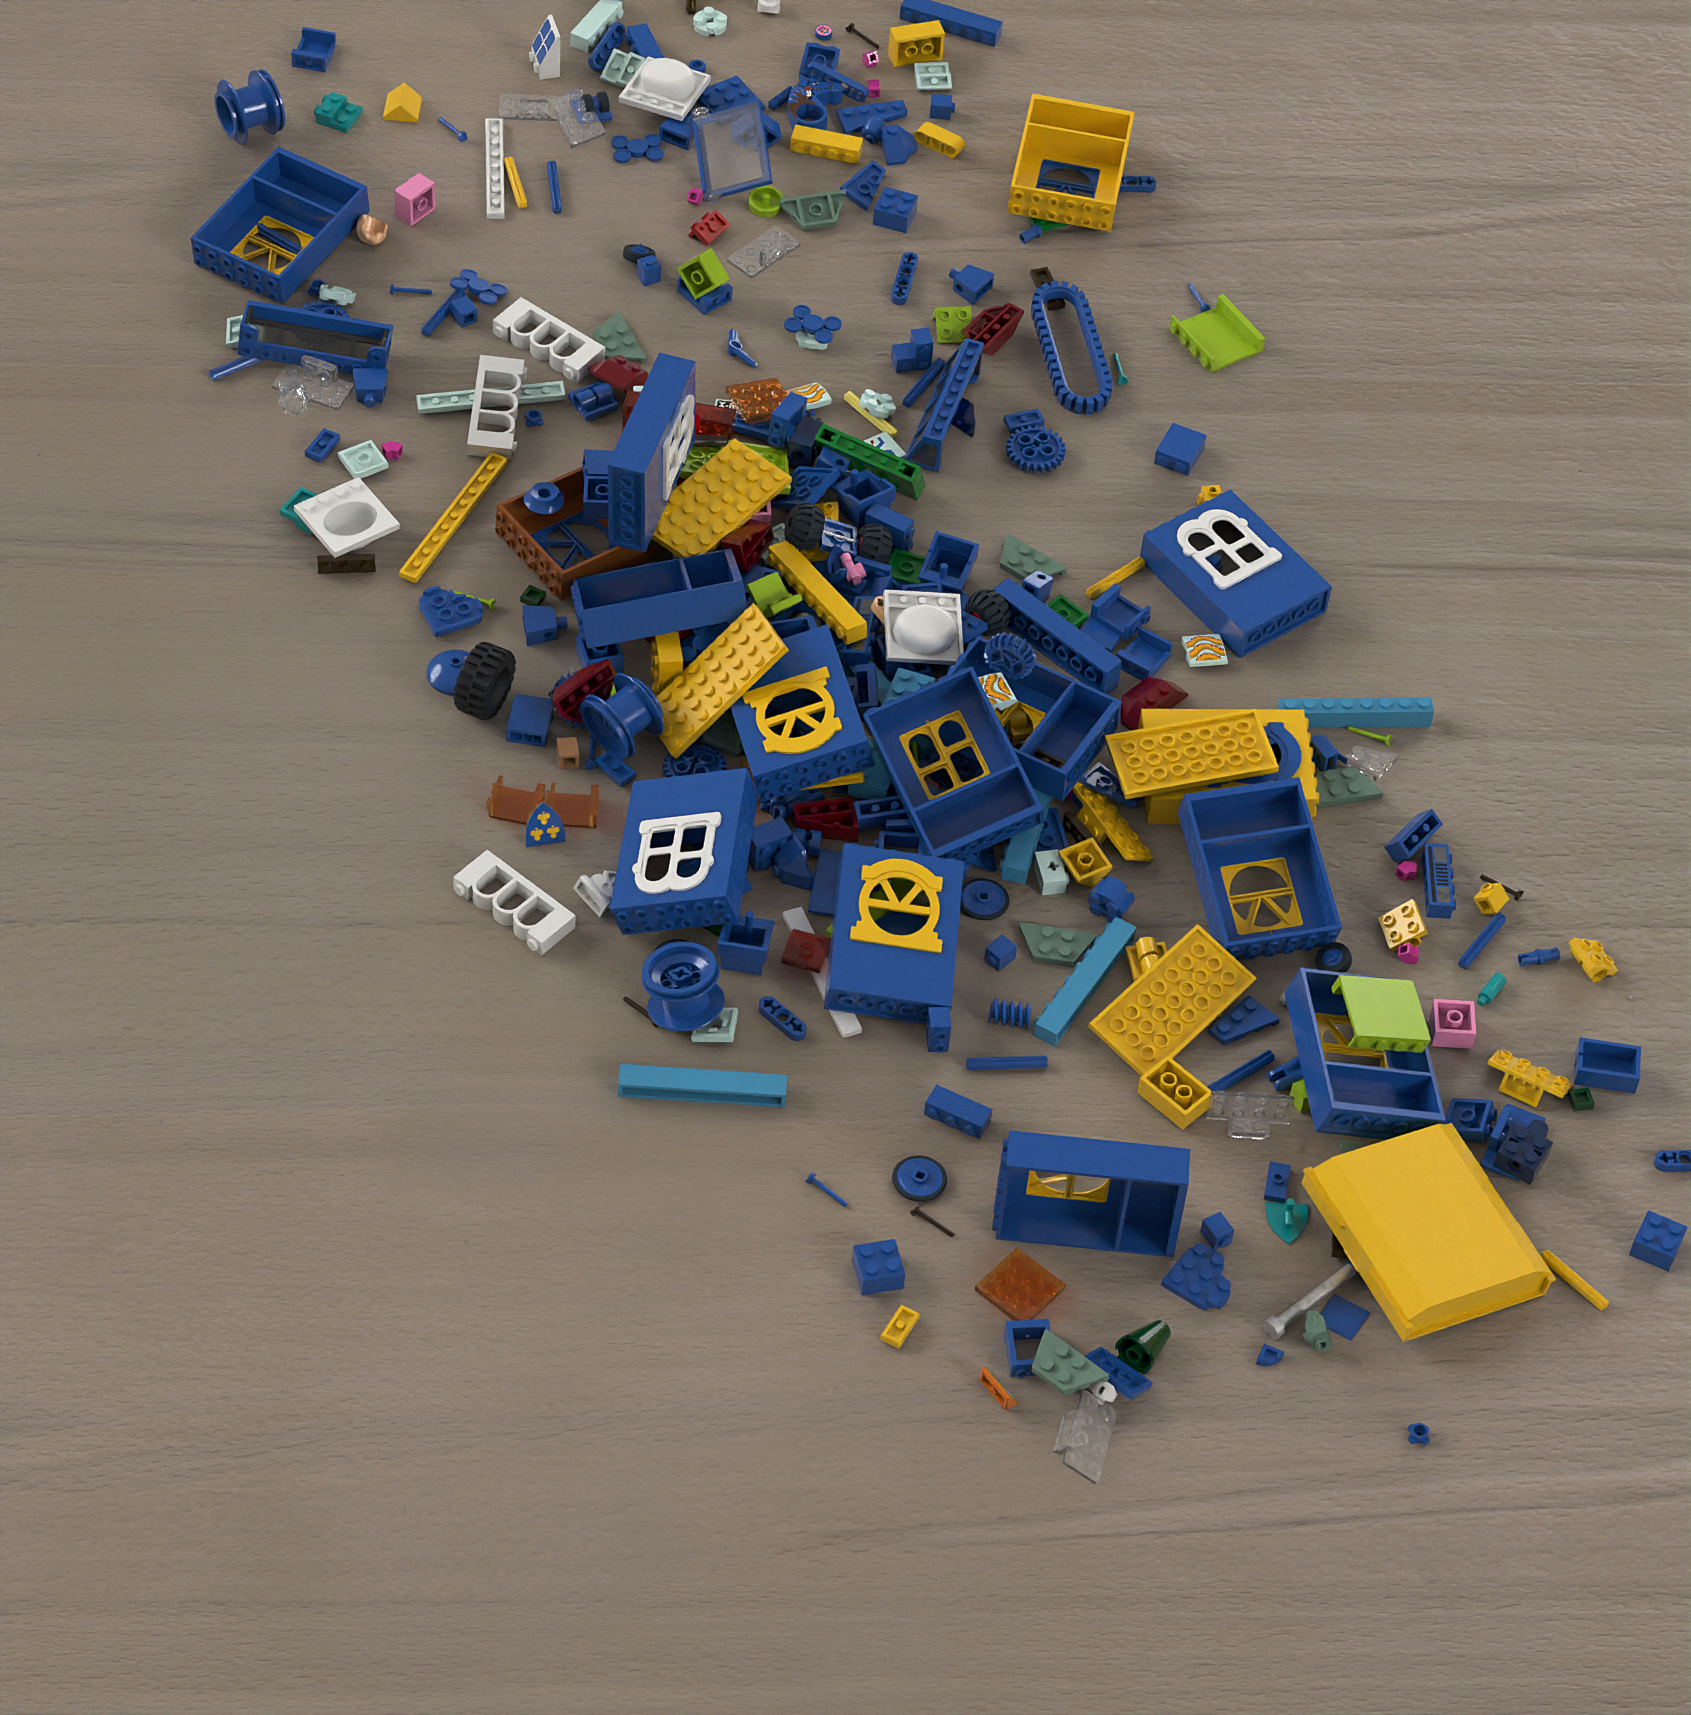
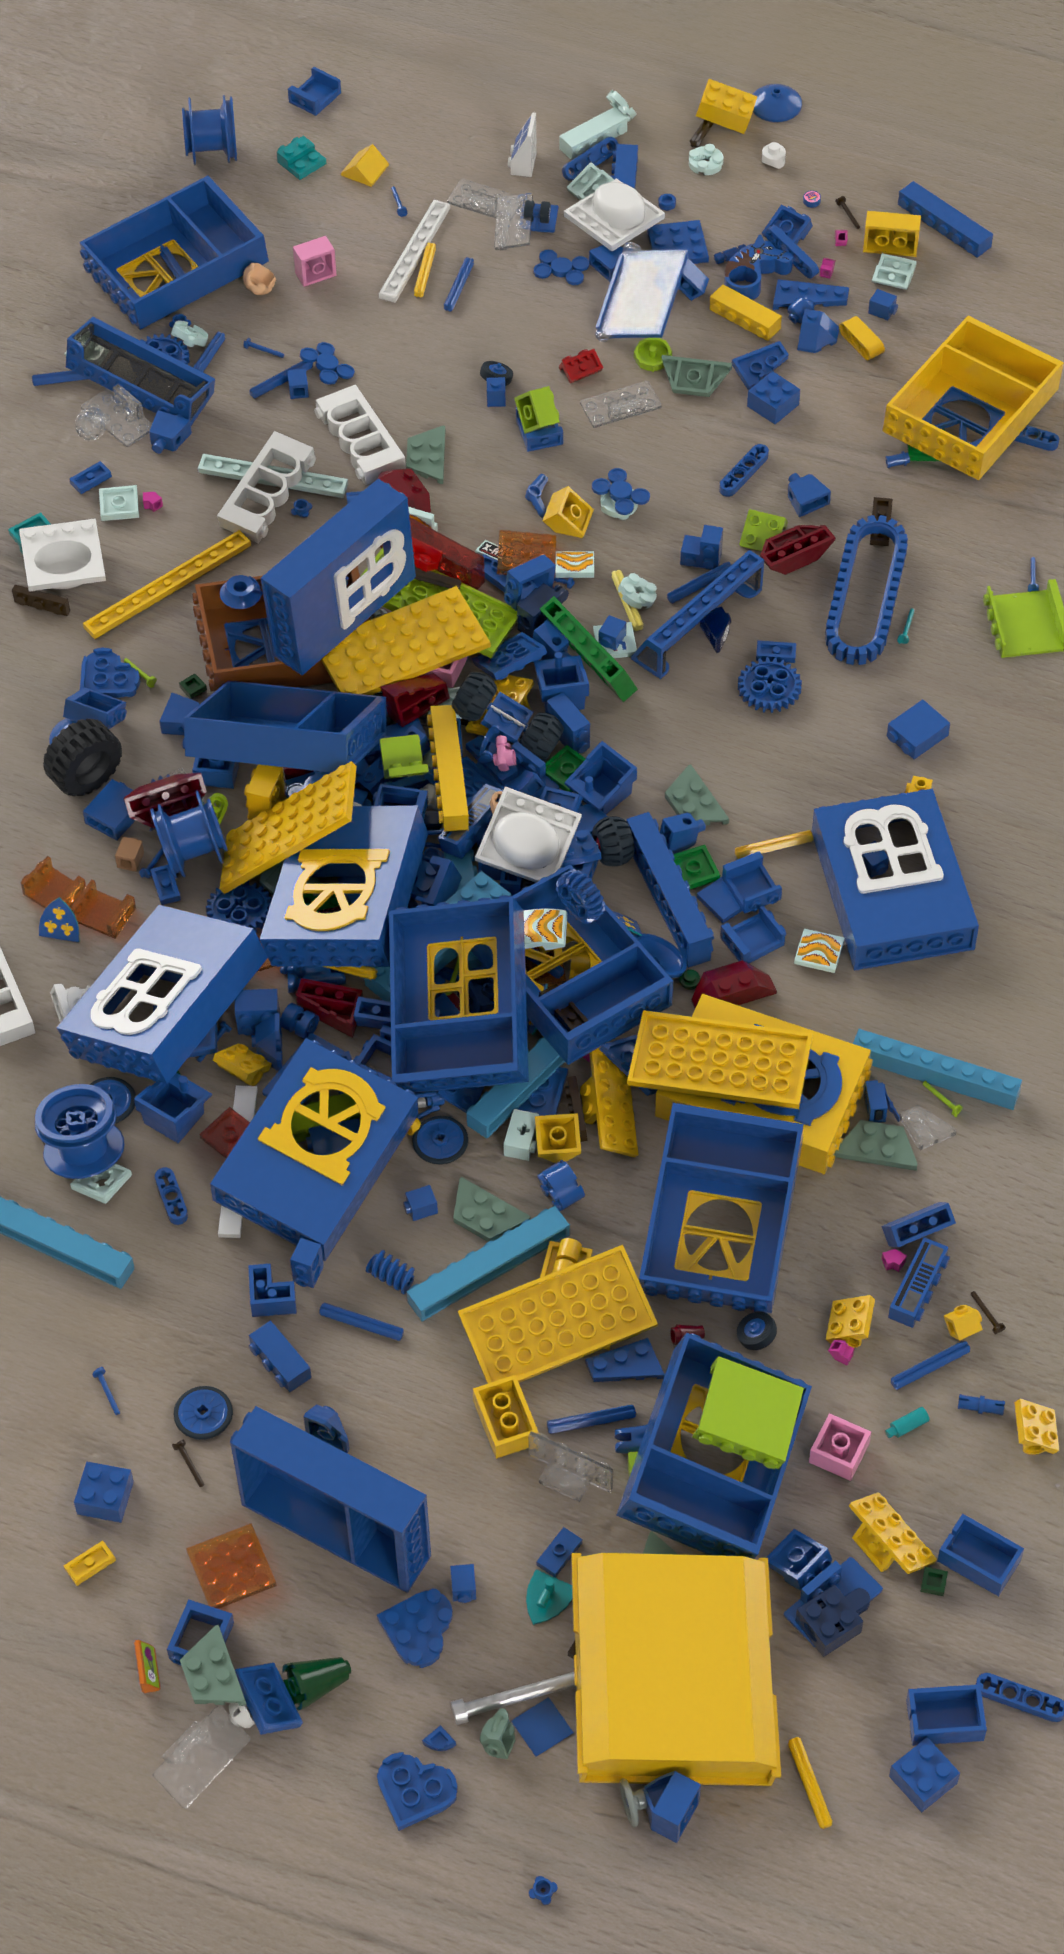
camera: 30 degrees right, 5 degrees up
(362, 303) = (210, 351): none -> blue axle
(459, 639) = (94, 705): none -> blue window
(695, 196) = (586, 330): dark pink piece -> none
(775, 356) = (568, 513): none -> yellow slope
(785, 891) = (242, 1063): none -> yellow plate
(880, 438) = (612, 632): none -> blue brick
(919, 1067) = (270, 1297): none -> blue brick
(1274, 1398) = (415, 1789): none -> blue plate
(1277, 982) = (680, 1330): none -> dark red cone
(1478, 1333) = (668, 1803): none -> blue piece
(1650, 1188) = (946, 1714): none -> blue piece

